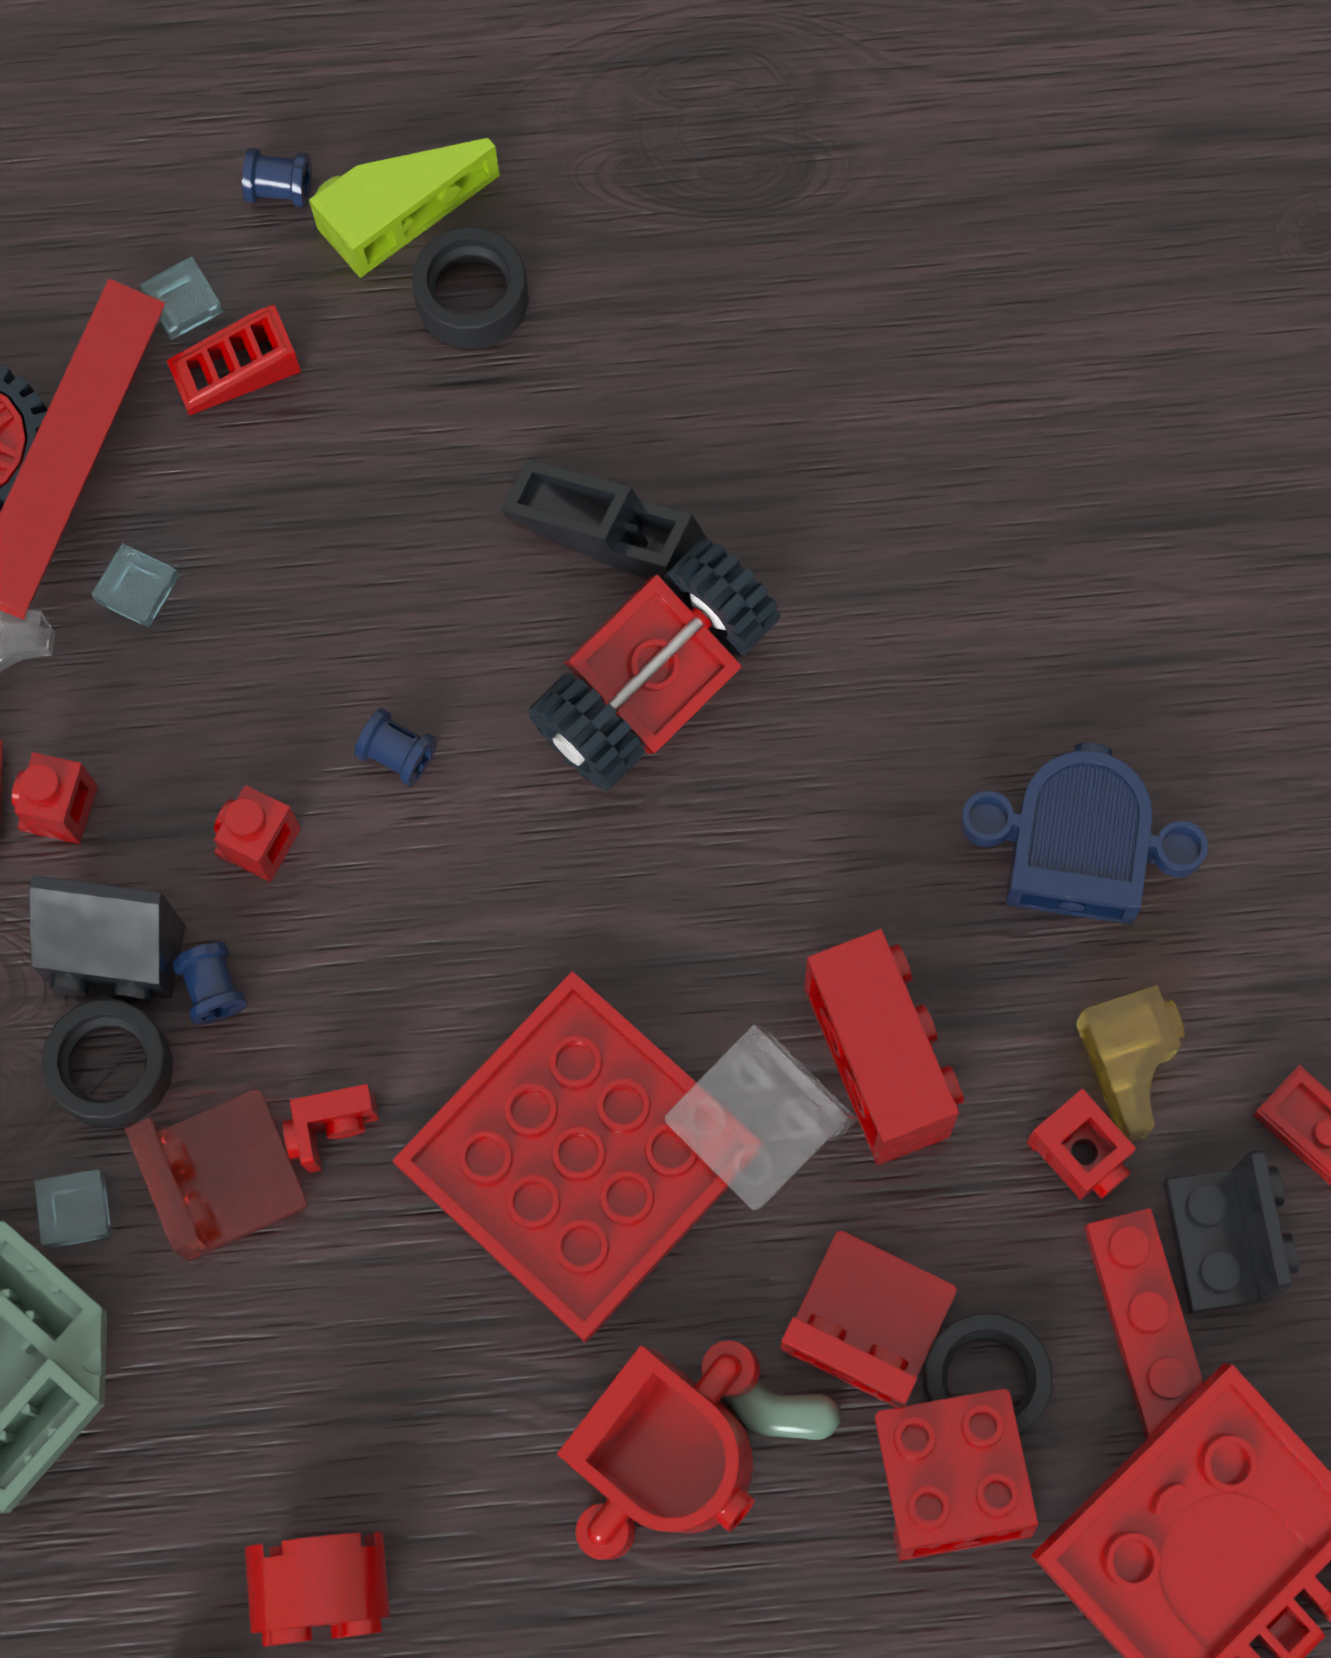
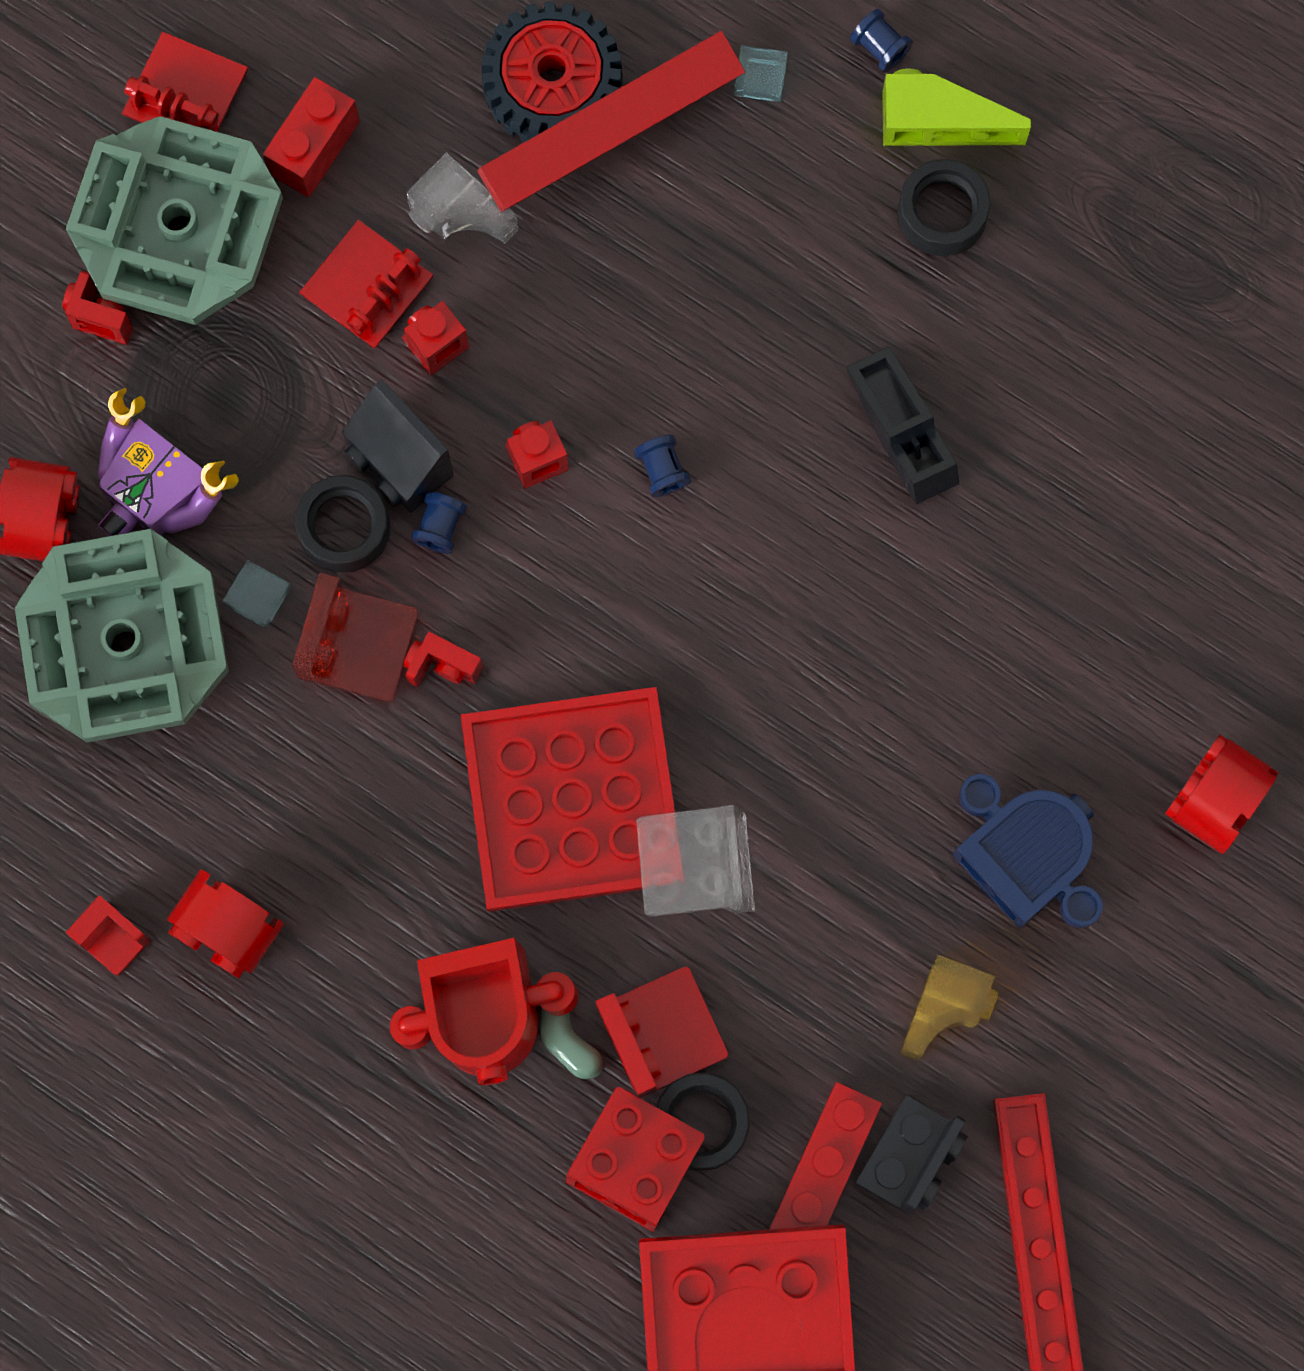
camera: 35 degrees right, 5 degrees up
(135, 585) = (588, 239): clear light blue tile -> none
(241, 335) = (770, 161): red slope -> none
(654, 663) = (857, 538): plate -> none
(882, 1046) = (800, 879): red brick -> none
(1083, 1123) = (874, 1016): red brick -> none
(1222, 629) = (1222, 794): none -> red brick

